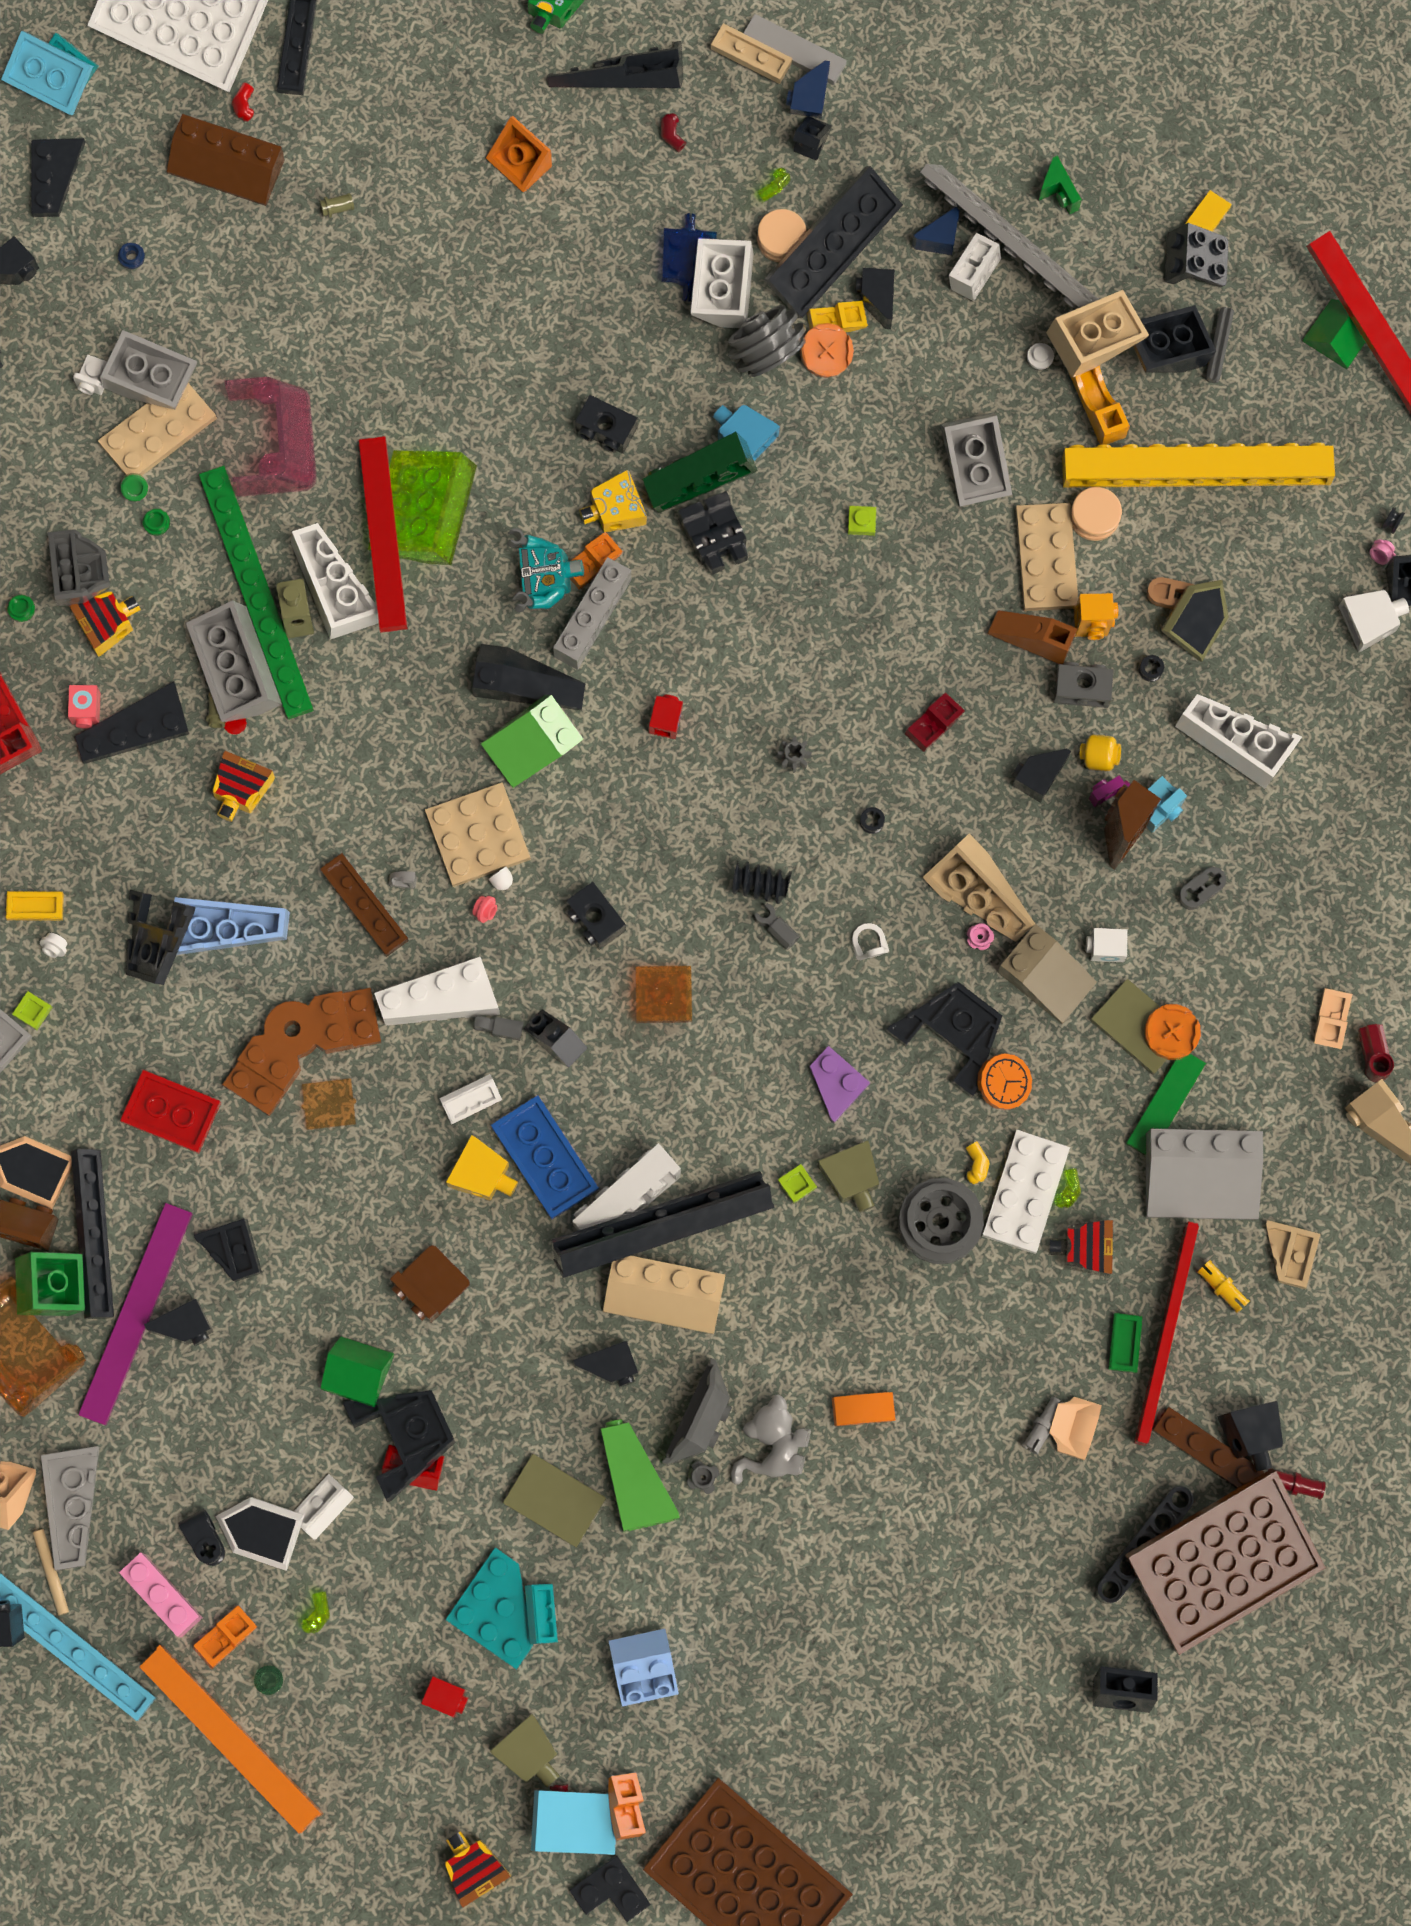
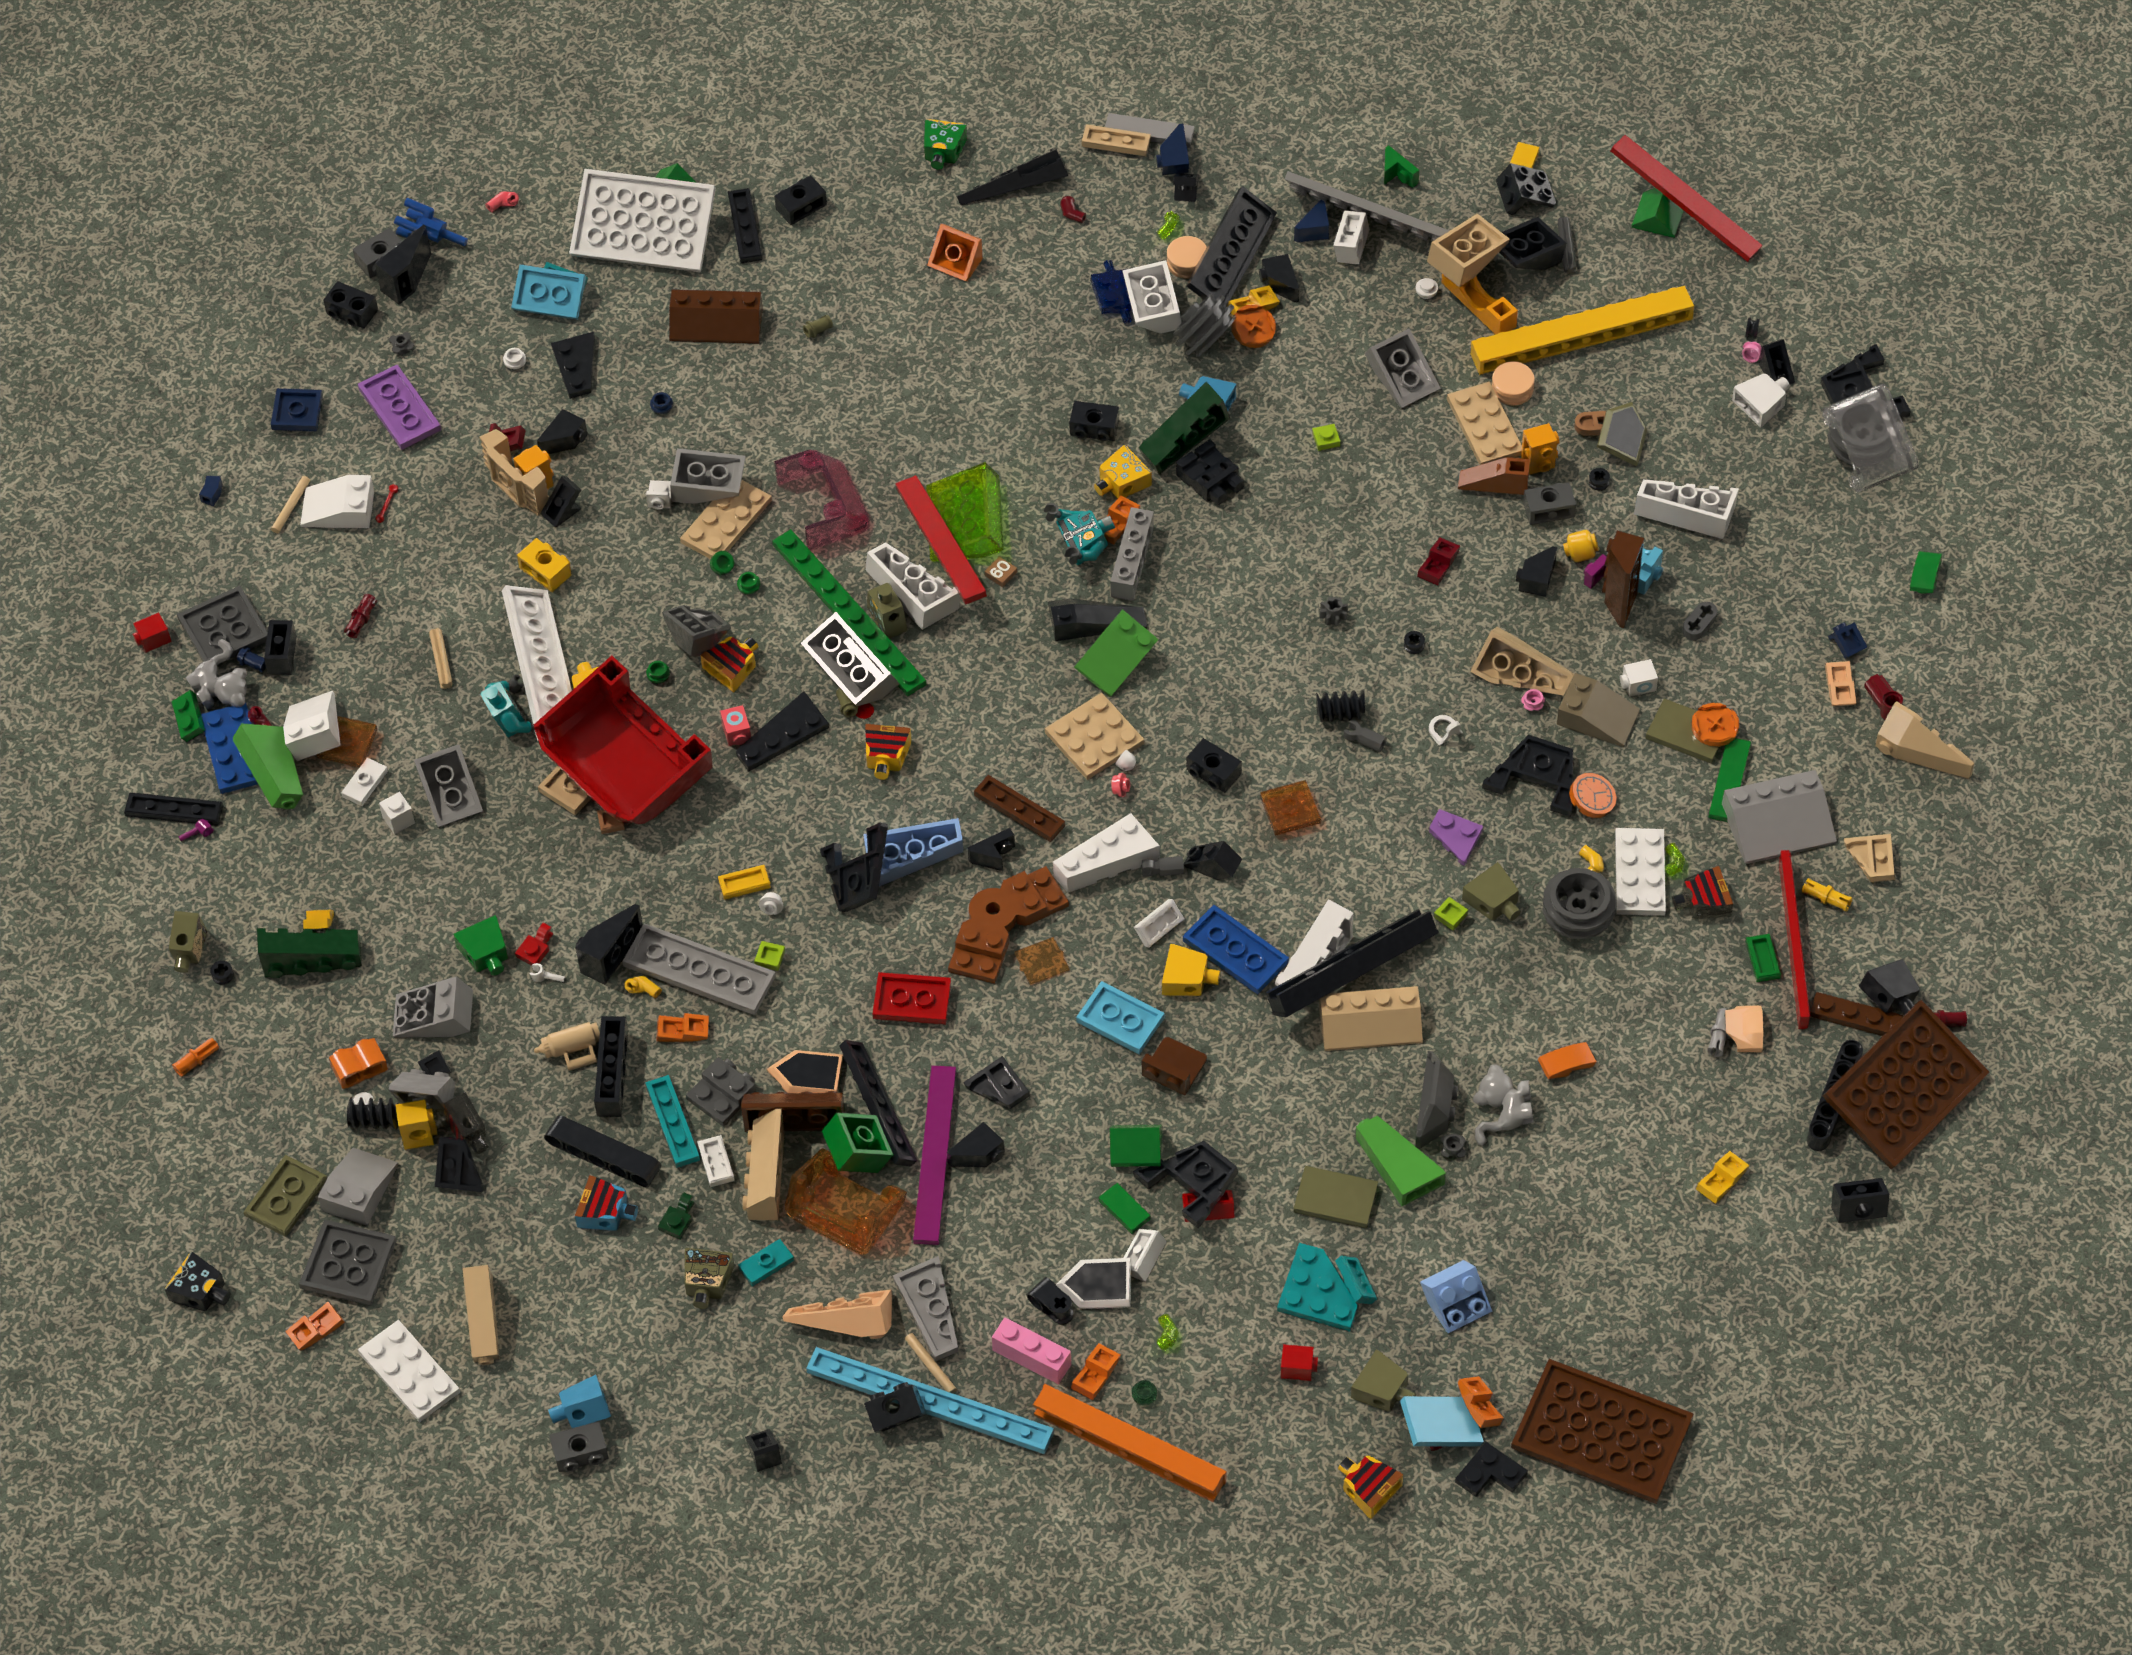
camera: 10 degrees left, 20 degrees down
(240, 102) = (713, 275): red arm -> none
(309, 950) = (988, 851): none -> black slope
(320, 1444) = (1124, 1208): none -> green tile
(362, 42) = (800, 200): none -> black brick
(390, 1205) = (1120, 1017): none -> medium azure plate
(403, 879) = (1045, 781): light grey tile -> none
(441, 589) = (1001, 571): none -> medium nougat tile
(610, 1365) = (1344, 1083): black slope -> none
(666, 716) = (1219, 611): red brick -> none
(986, 1606) = (1722, 1177): none -> yellow slope
(1360, 964) = (1848, 639): none -> dark blue bracket

